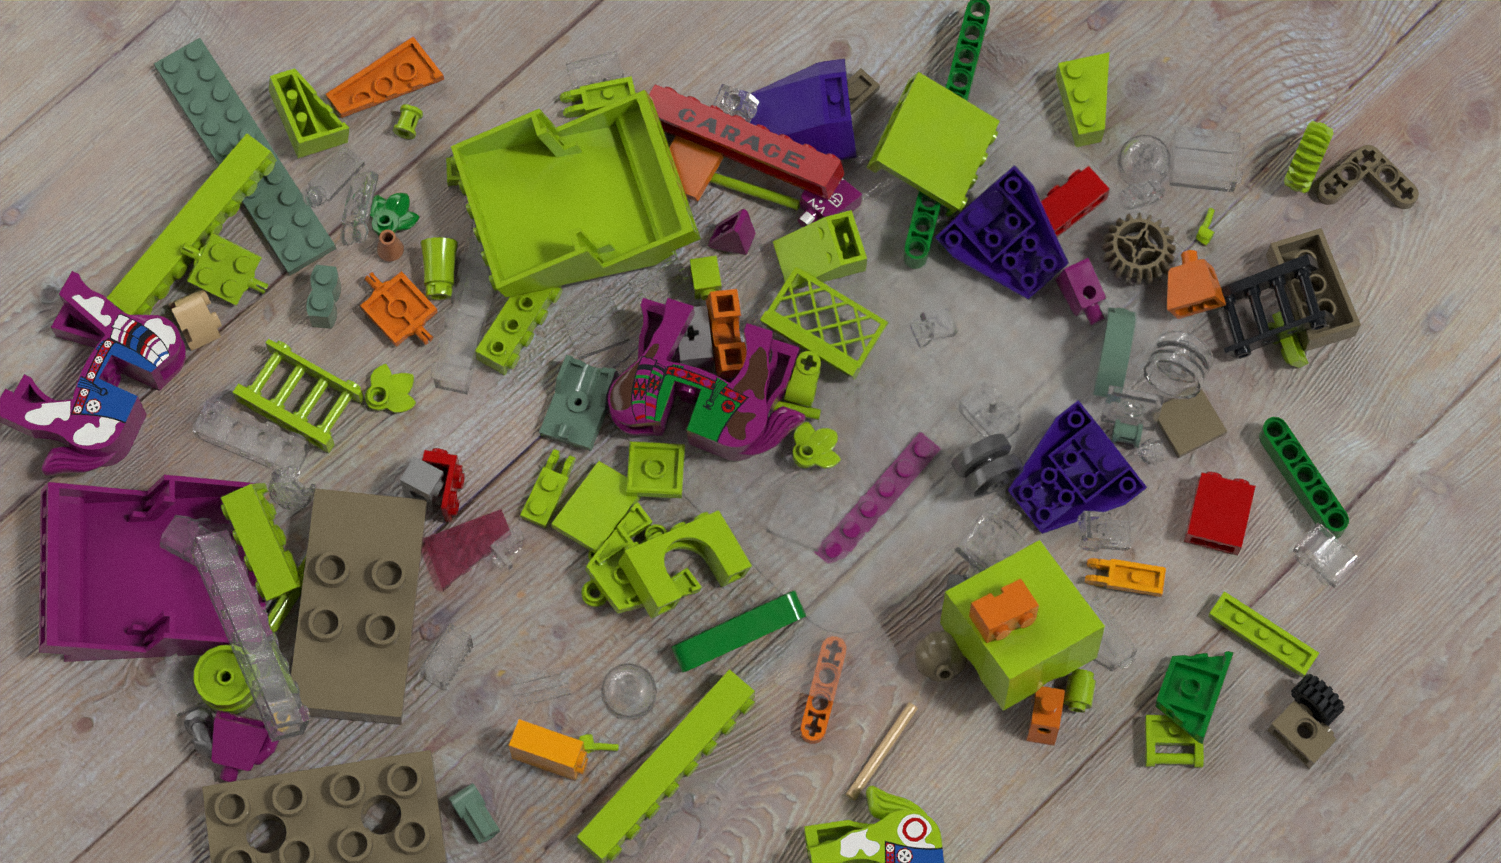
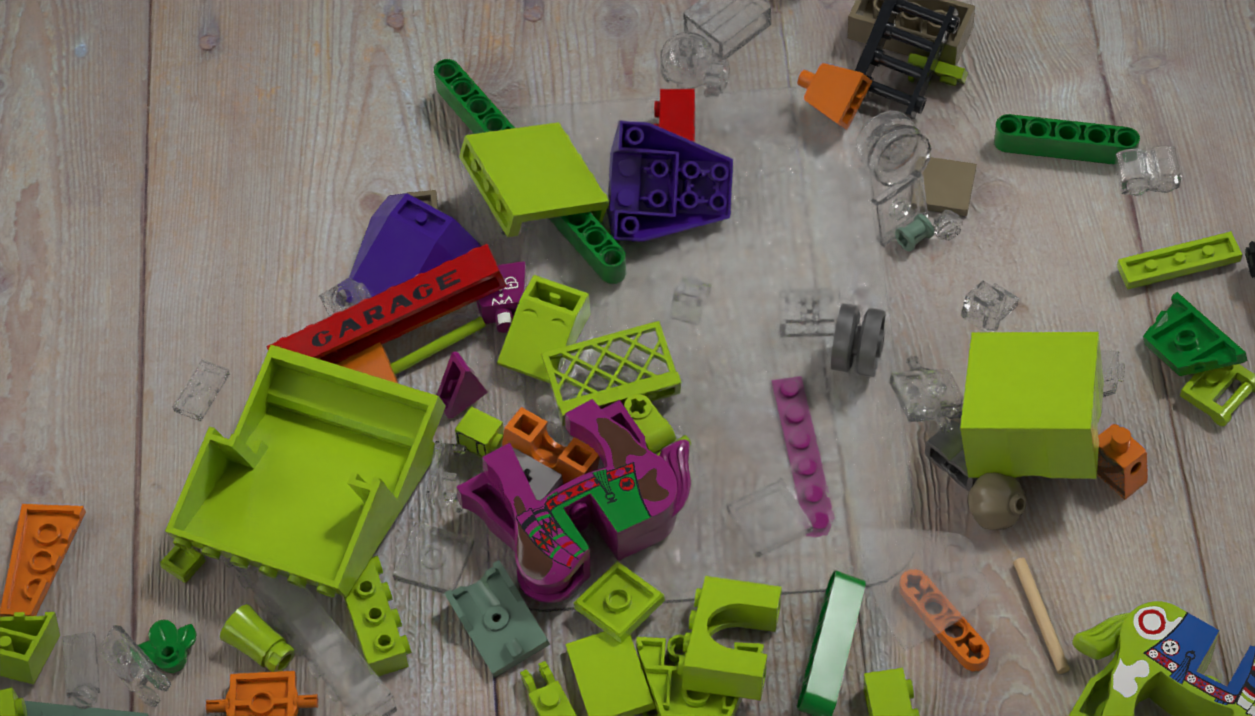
camera: 45 degrees left, 15 degrees down
(389, 246) = (196, 666): nougat cone -> none
(407, 121) = (94, 566): lime bush -> none
(597, 96) = (229, 400): lime hinge -> none
(817, 444) = (716, 463): lime plate -> none
(1004, 613) = (1024, 395): orange brick -> none
(1074, 473) = (919, 290): dark purple wedge -> none
(1080, 690) = (1117, 415): lime brick -> none
(1082, 281) = (763, 169): magenta torso -> none
(1084, 96) = (593, 59): lime wedge -> none
(1115, 350) = (842, 180): sand green arch -> none
(1128, 576) = (1048, 313): light orange hinge -> none
(1161, 256) = (766, 101): dark tan gear -> none
(1204, 233) = (788, 64): lime hand -> none
(1220, 513) = (1045, 216): red brick -> none

